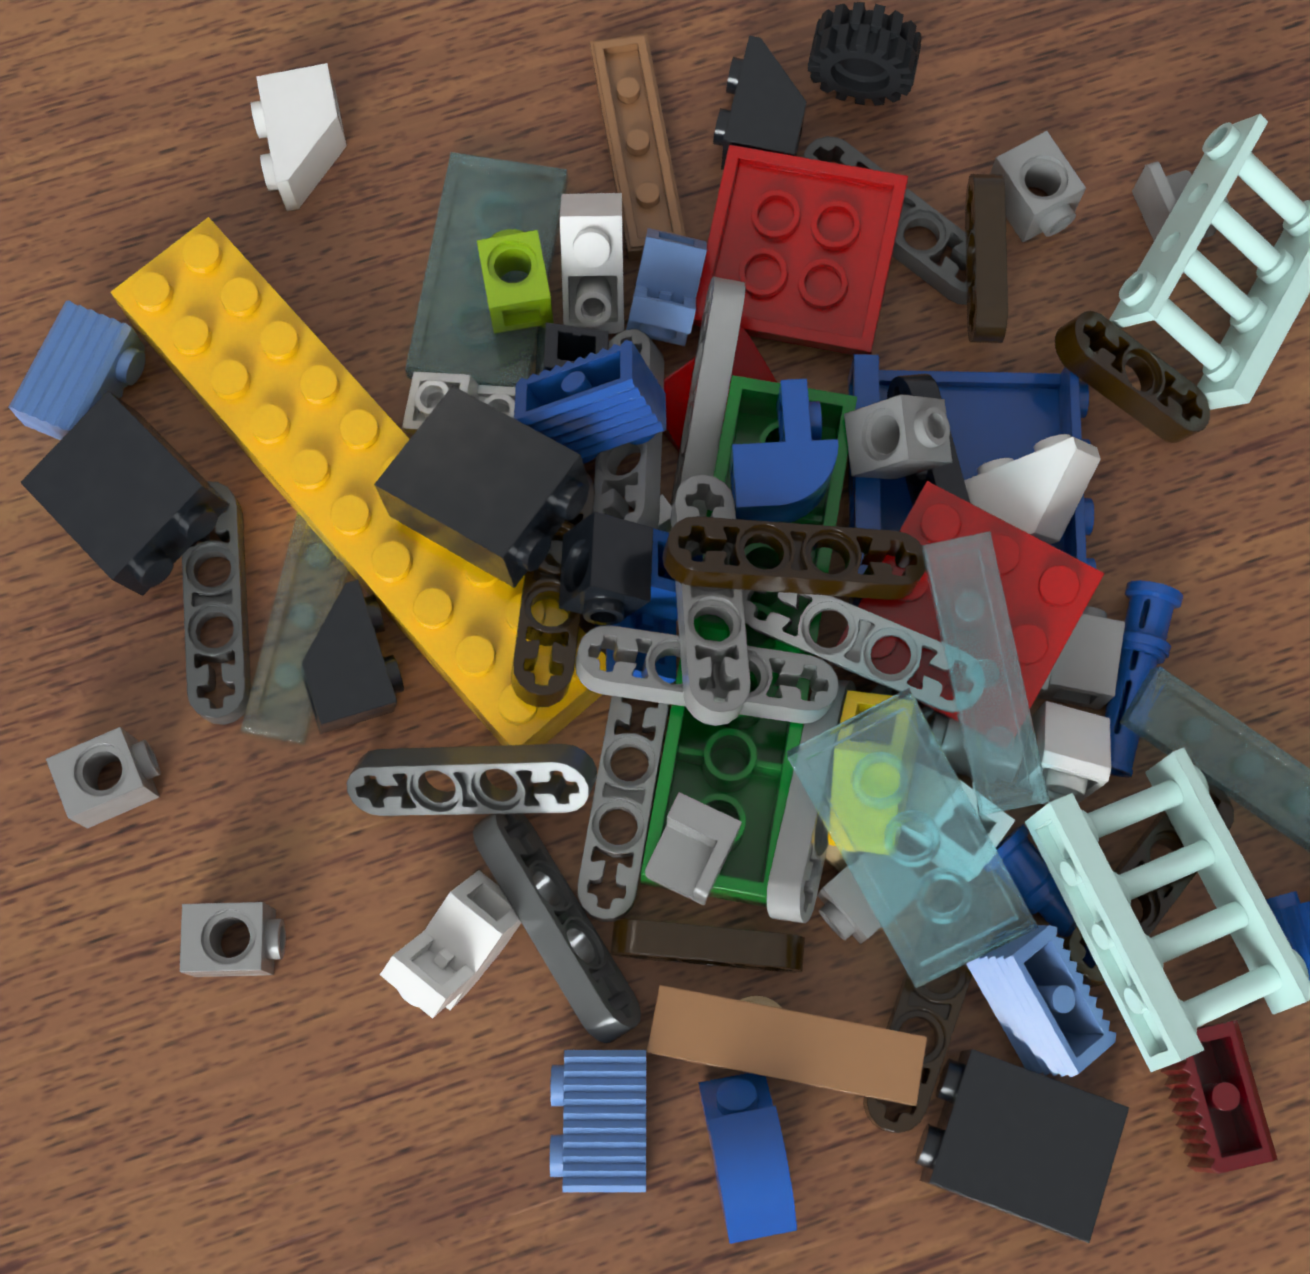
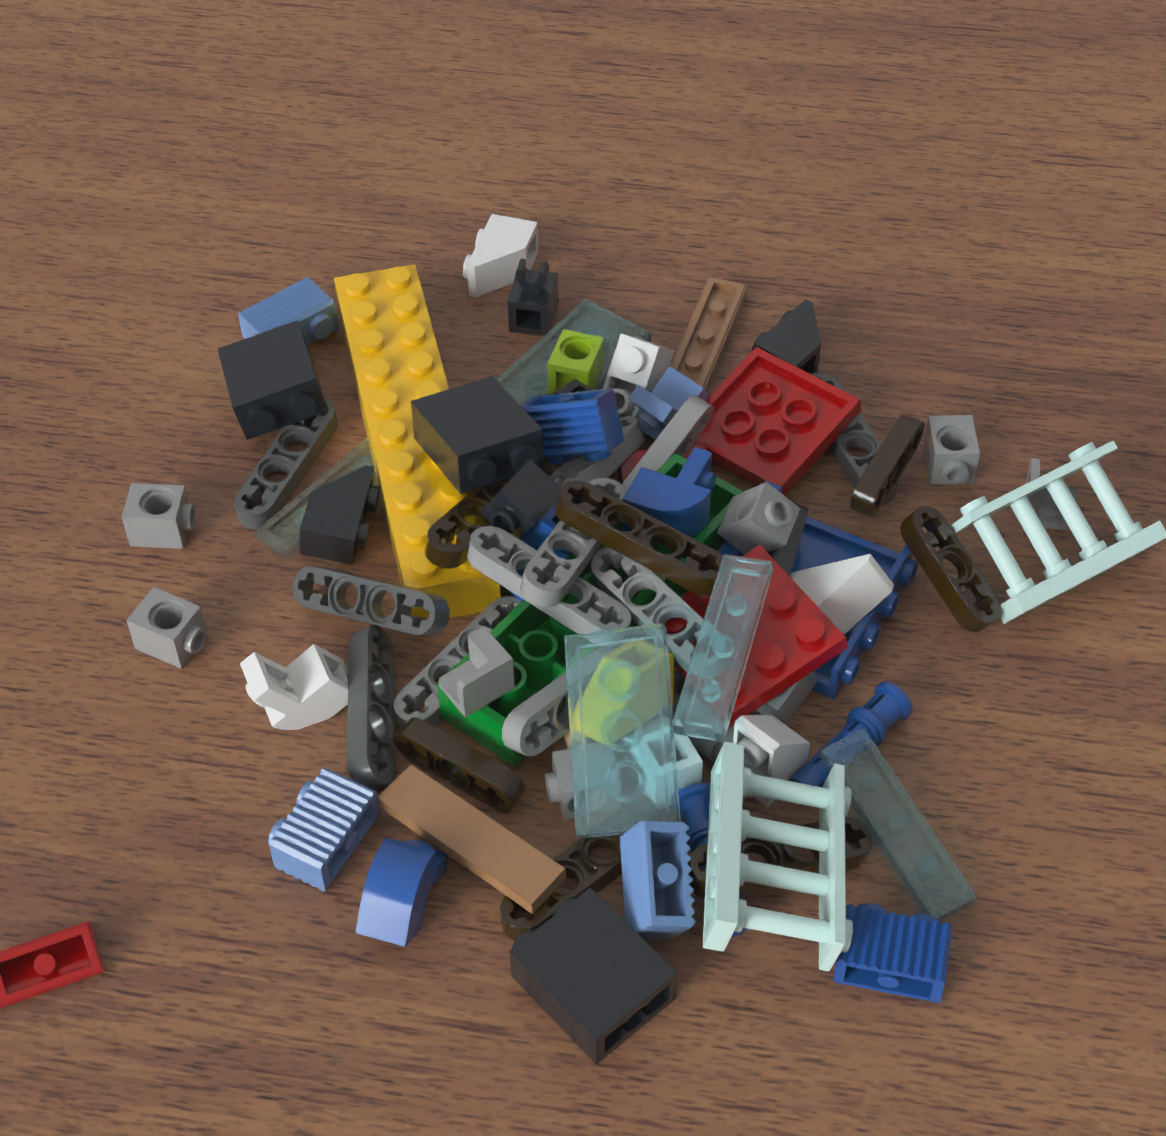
camera: 30 degrees right, 25 degrees down
(389, 192) = (533, 300): none -> black brick
(864, 54) = (876, 354): black tyre -> none
(1088, 663) = (818, 709): light grey brick -> none
(1220, 1104) = (744, 1002): dark red brick -> none

